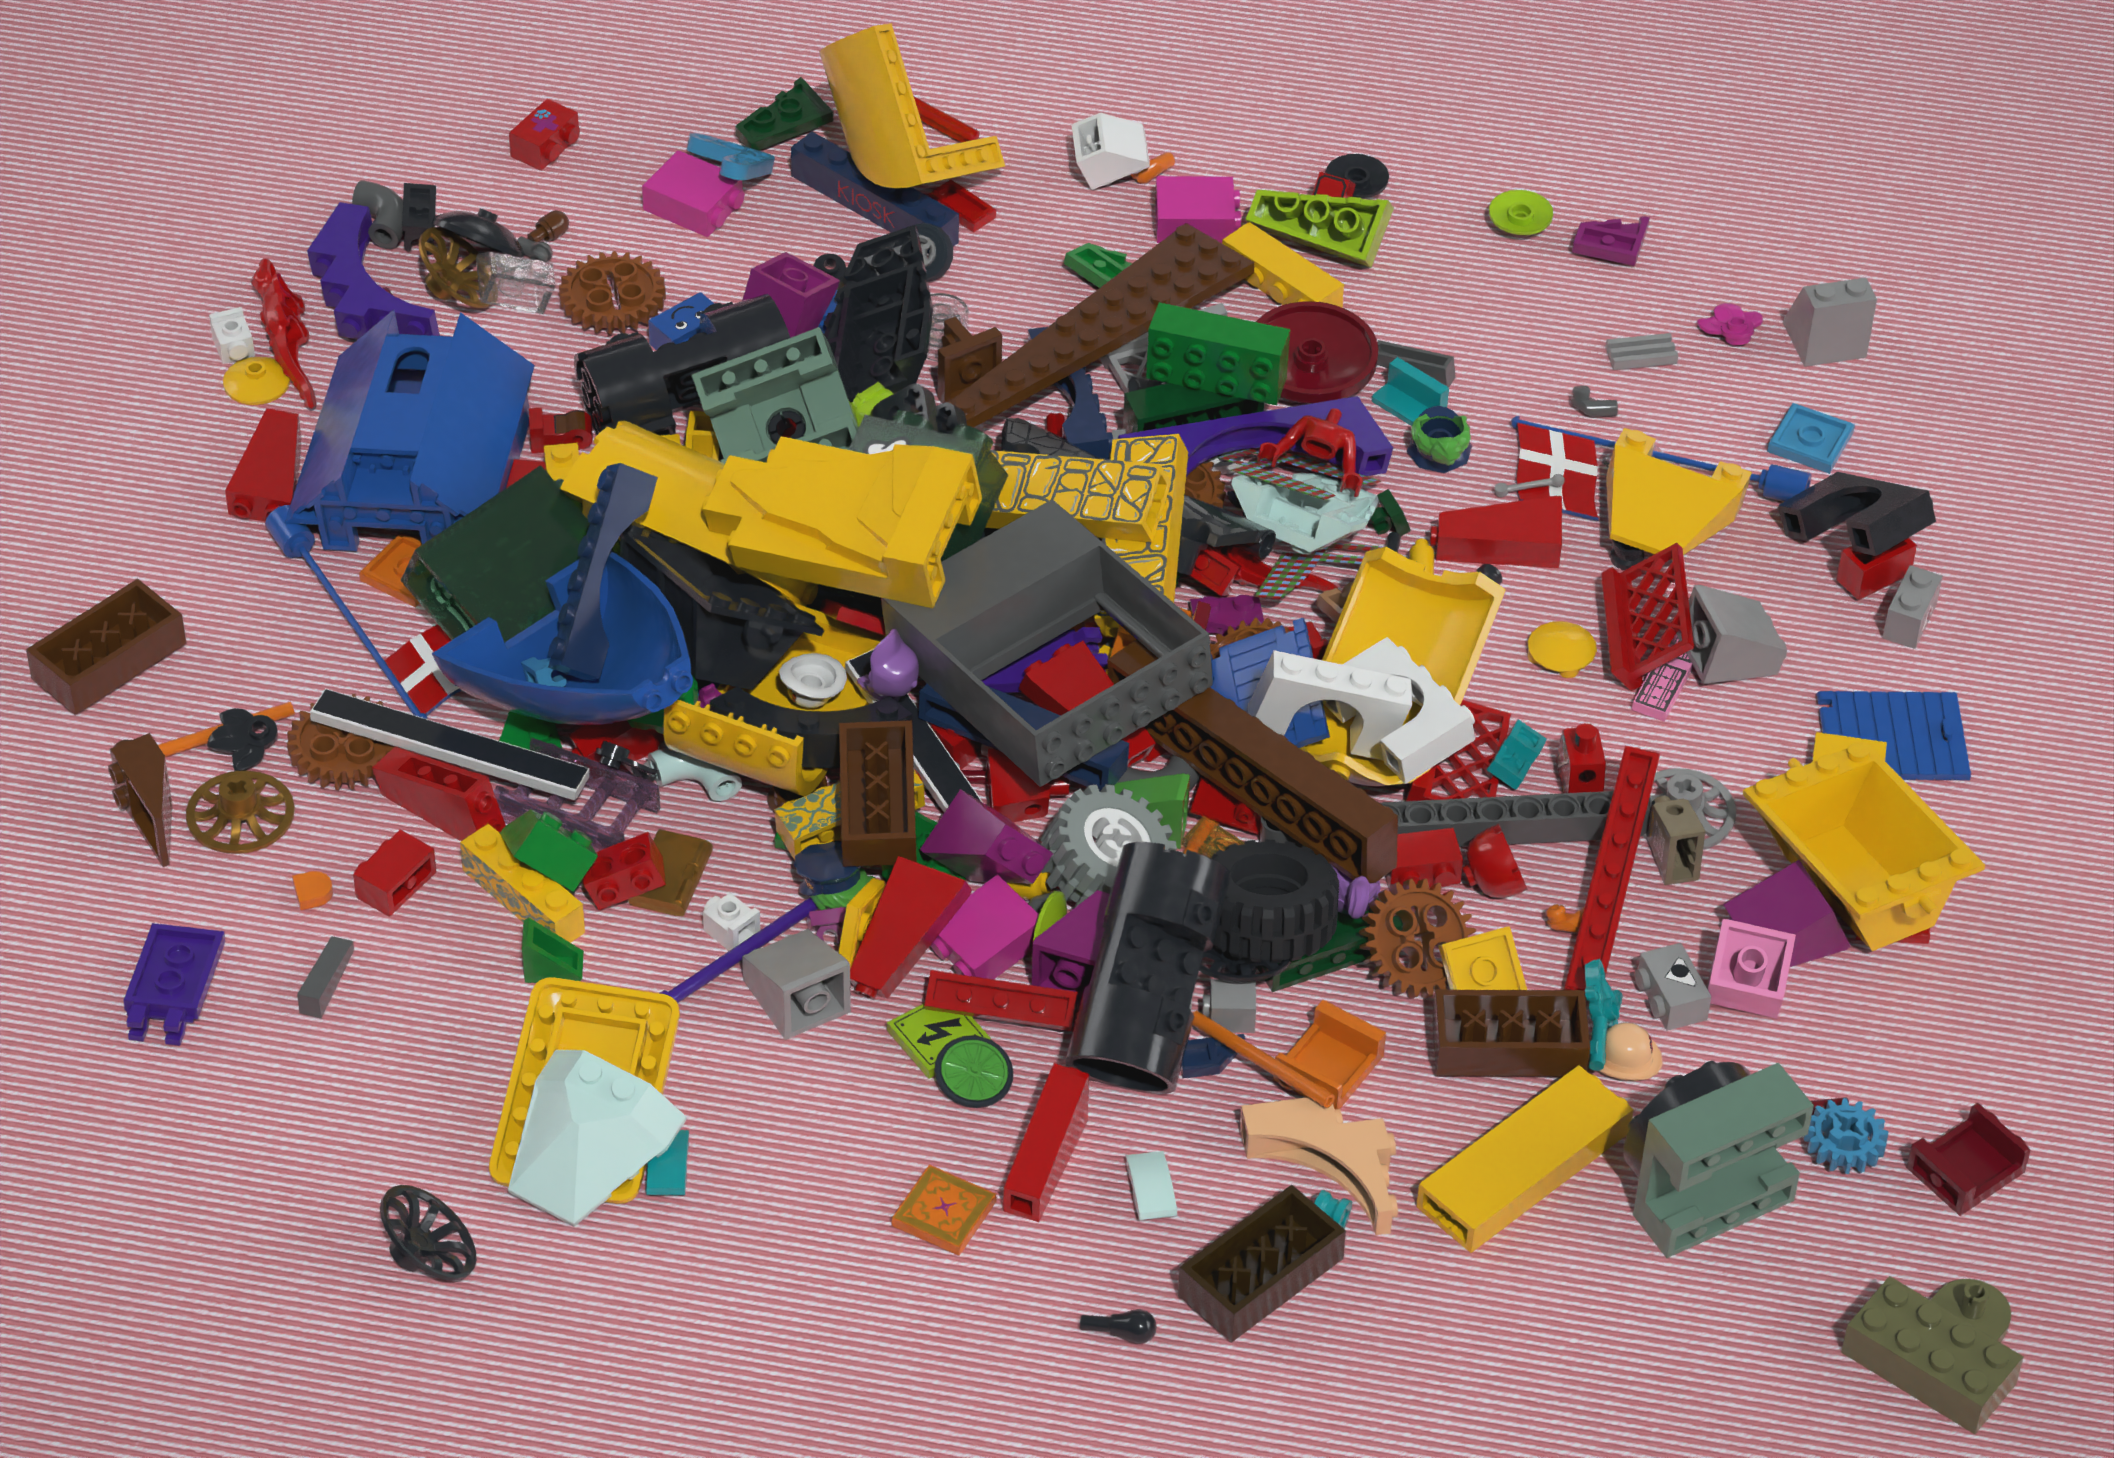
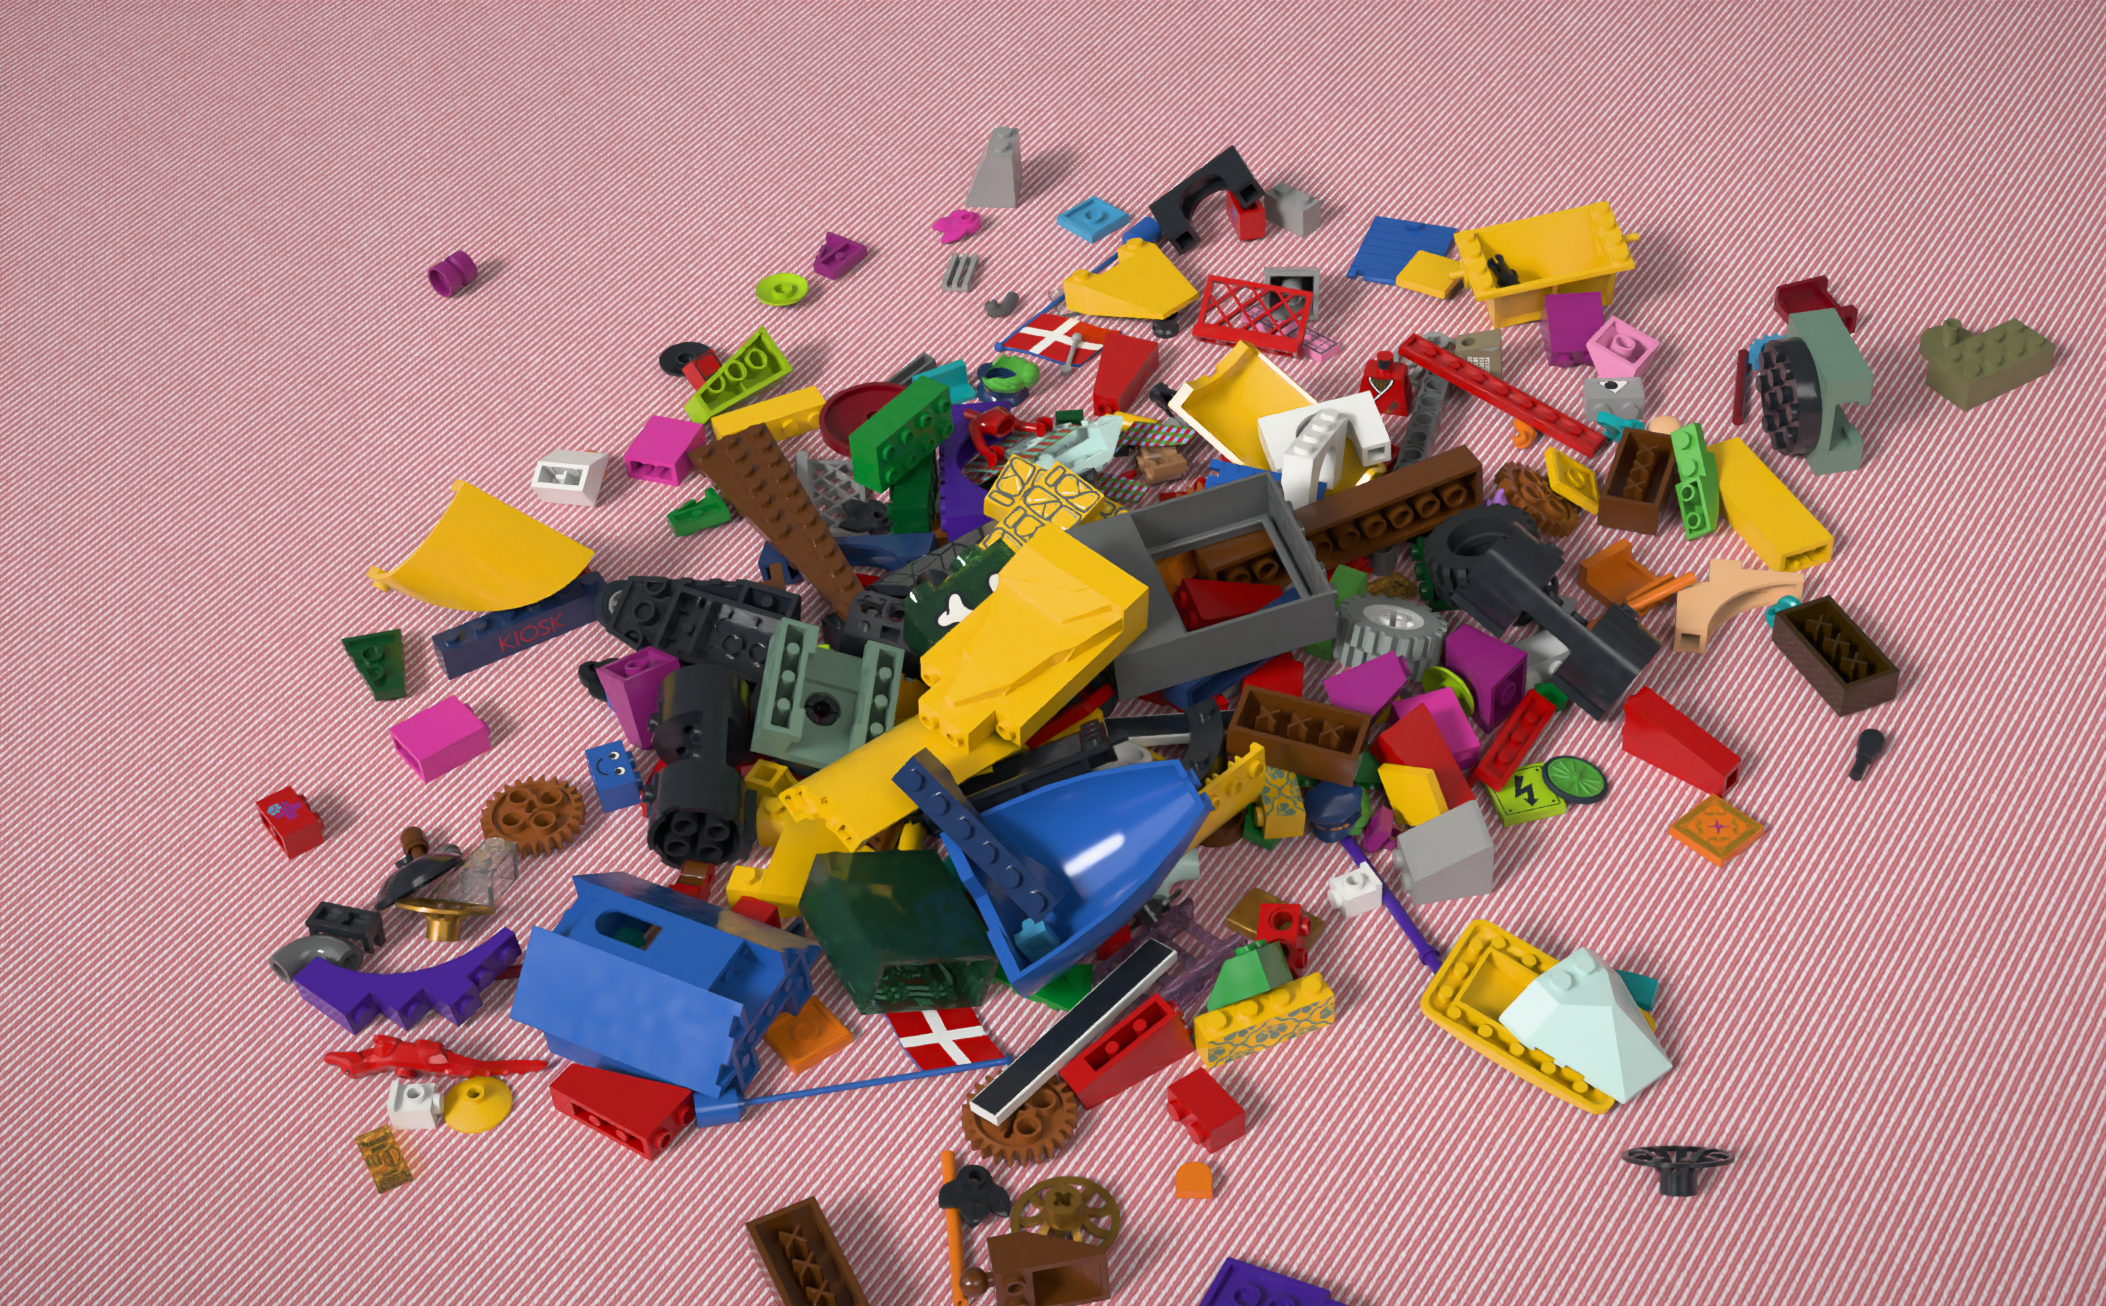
camera: 65 degrees left, 5 degrees down
(173, 342) = (383, 1159): none -> clear yellow tile
(324, 977) = (1313, 1190): dark grey piece -> none
(549, 955) = (1351, 1025): green slope -> none
(737, 160) = (433, 689): dark azure beam -> none
(892, 669) = (1162, 698): medium lavender hair -> none
(1151, 1185) = (1736, 704): light aqua slope -> none
(1493, 865) = (1474, 436): red cylinder -> none
(1503, 1091) = (1699, 481): none -> bright green slope
(1824, 821) = (1505, 275): none -> black pin

